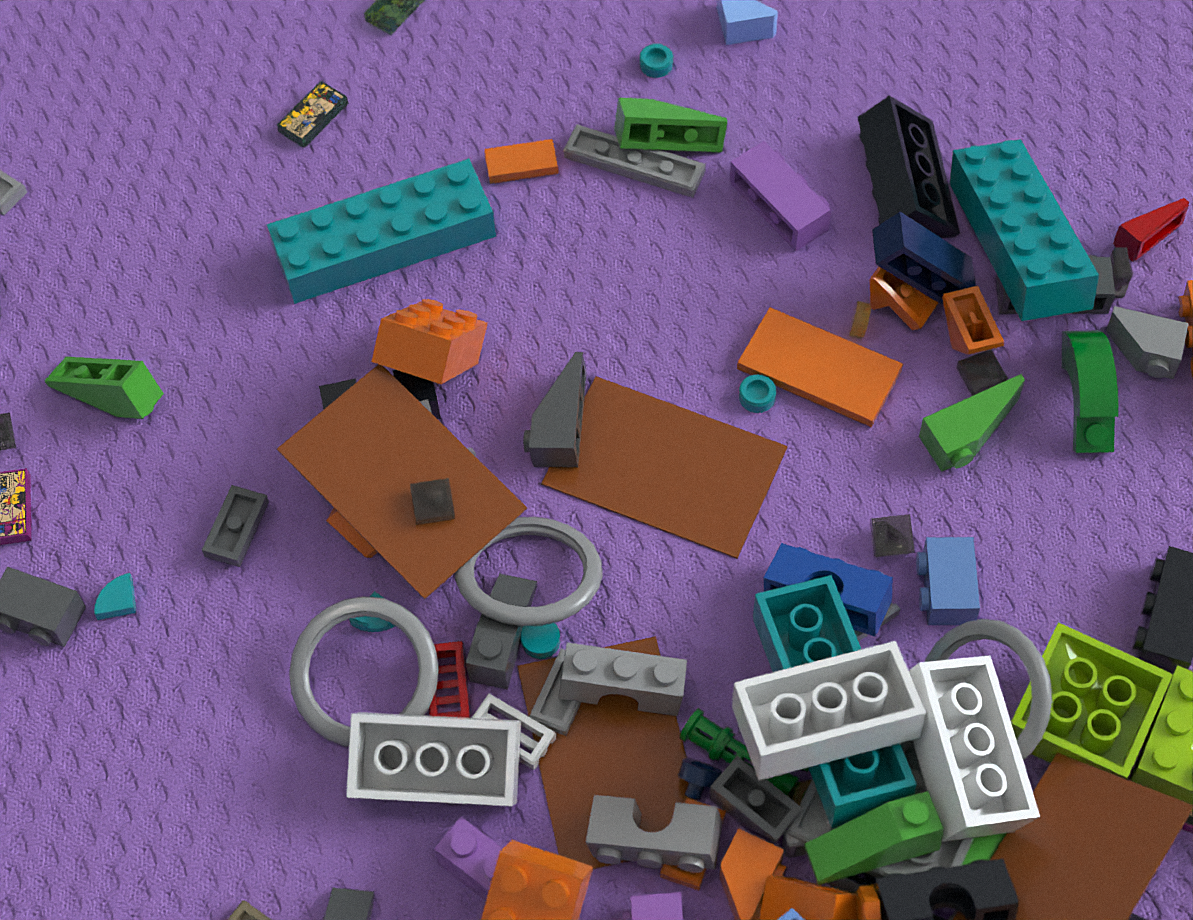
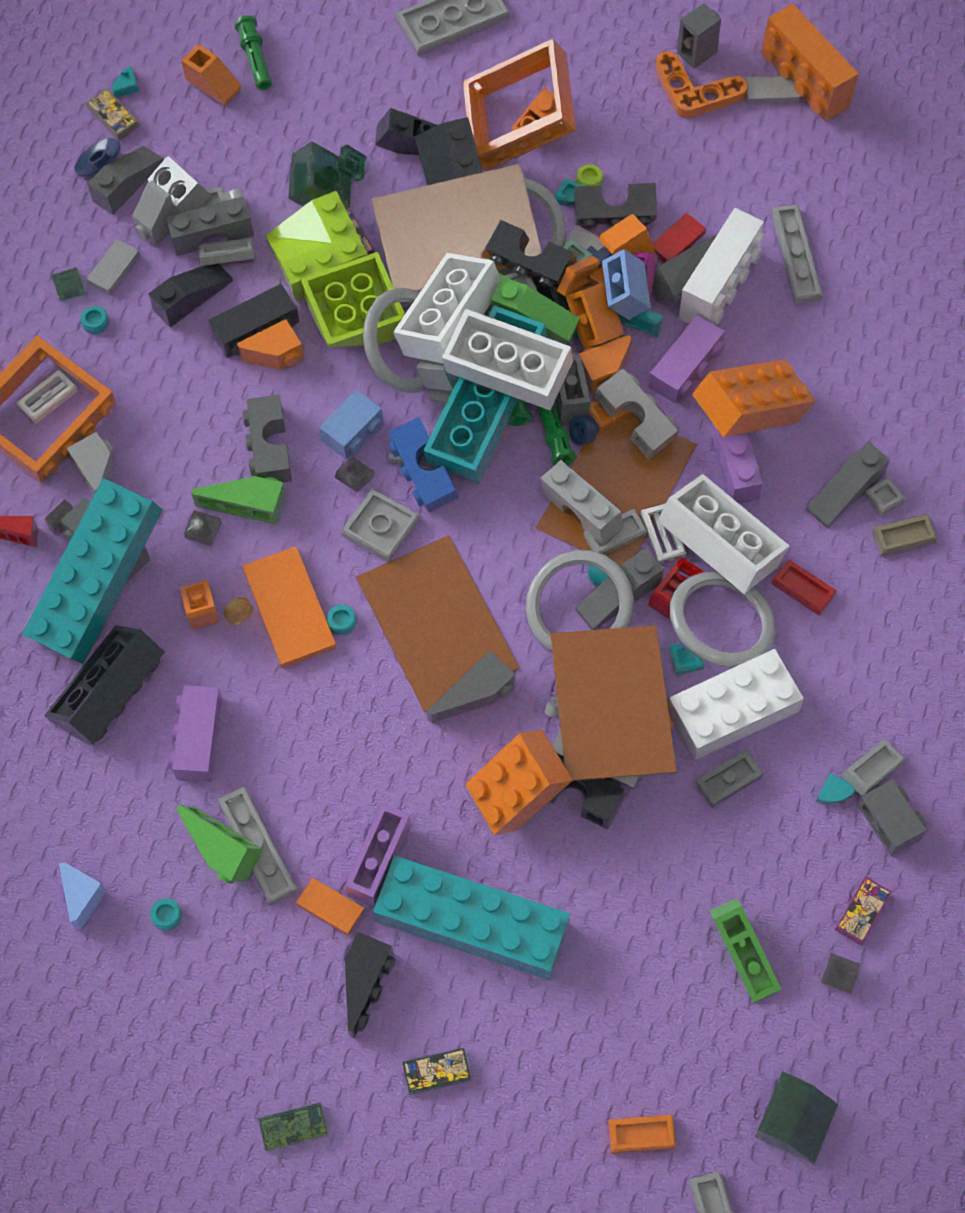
camera: 140 degrees left, 5 degrees up
(89, 646) = (873, 767): none -> light grey tile
(93, 192) = (641, 1134): none -> orange tile
(280, 594) = (734, 704): none -> white brick
(306, 792) = (804, 587): none -> red tile
(432, 501) = (606, 669): clear smoke tile -> none
(440, 125) = (364, 970): none -> black slope
(512, 213) = (377, 853): none -> medium lavender brick
(814, 509) = (380, 525): none -> light grey tile
(921, 257) = (171, 596): dark blue brick -> none
(970, 321) = (184, 546): orange slope -> none
(993, 476) = (265, 419): none -> dark grey arch
(1093, 379) = (156, 457): green arch -> none
(1120, 600) = (272, 347): none -> orange slope

